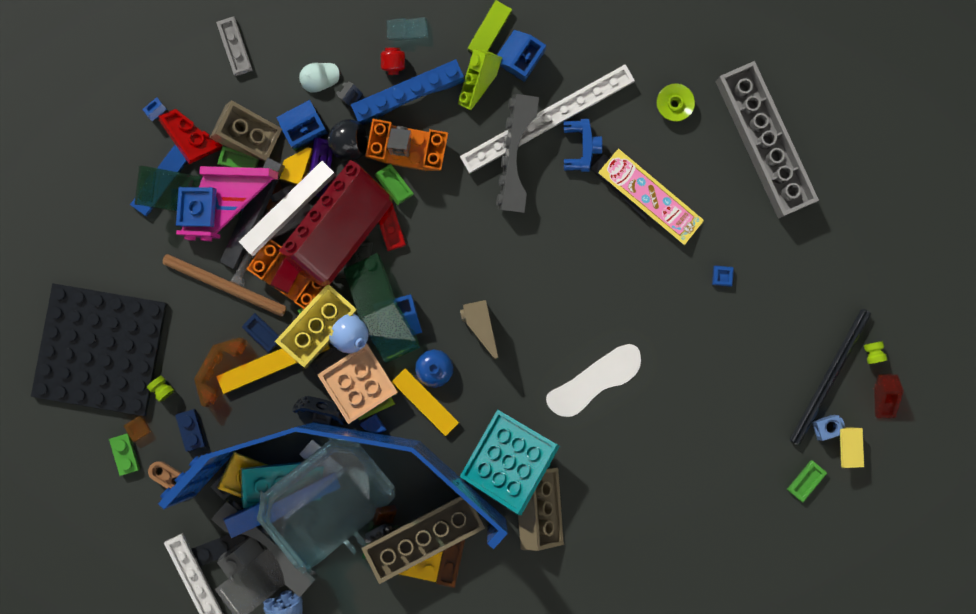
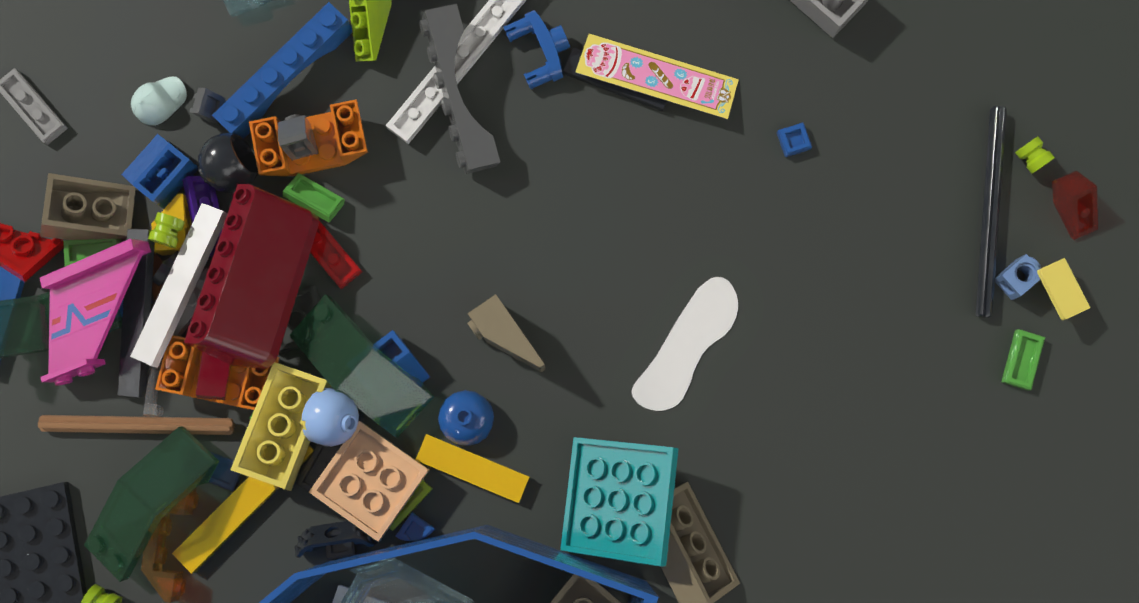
camera: 20 degrees left, 5 degrees down
(196, 207) = (54, 334): blue plate -> none
(213, 336) = (145, 497): none -> clear green windscreen
(292, 169) = (166, 230): none -> lime wheel
(392, 60) = (247, 39): red head -> none

